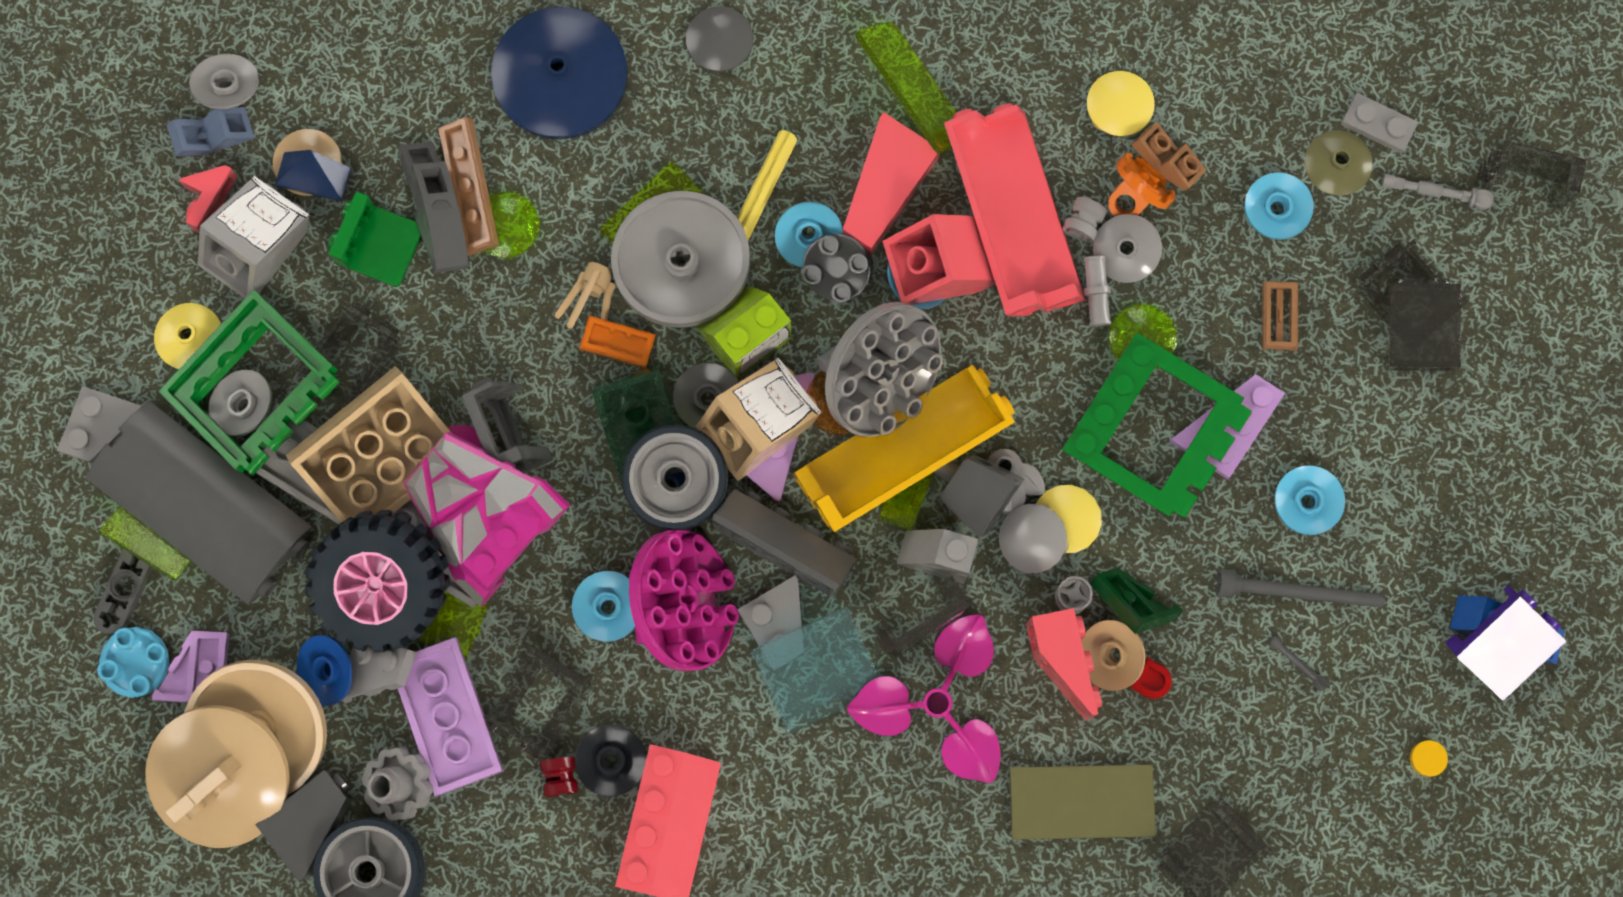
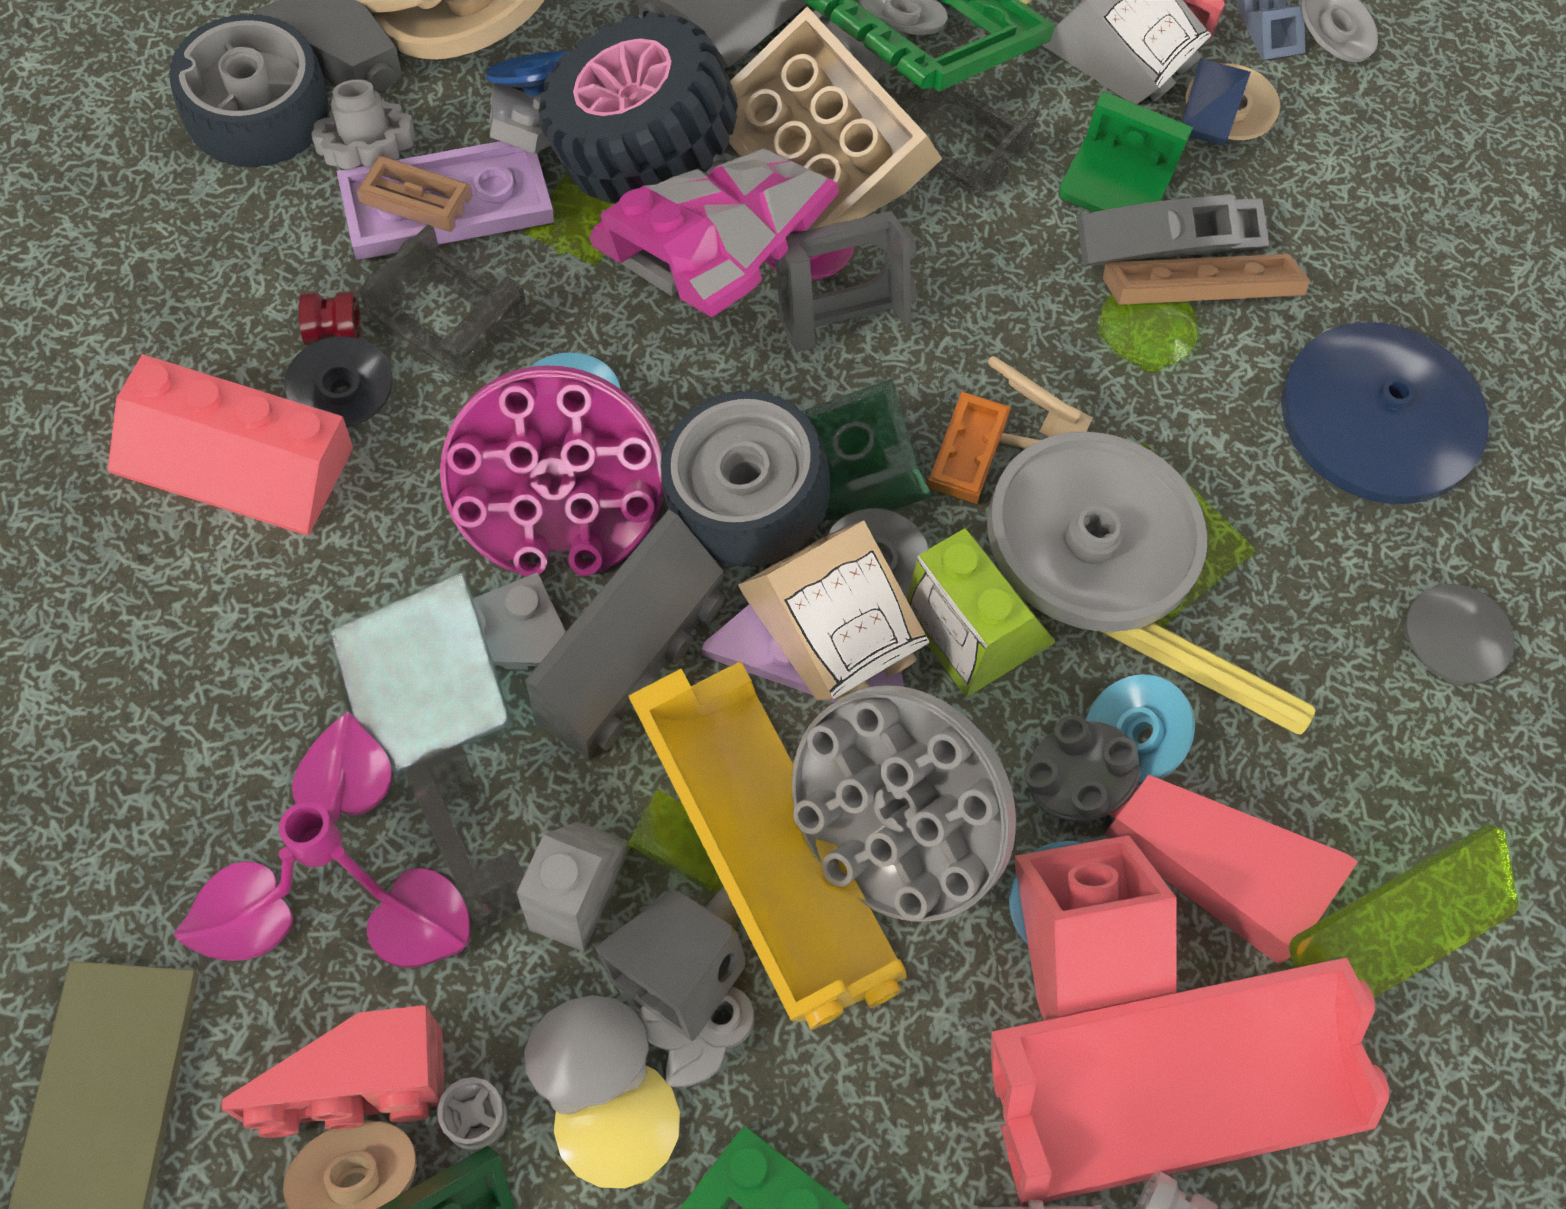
camera: 90 degrees right, 15 degrees down
(467, 738) = (410, 199): none -> medium nougat tile

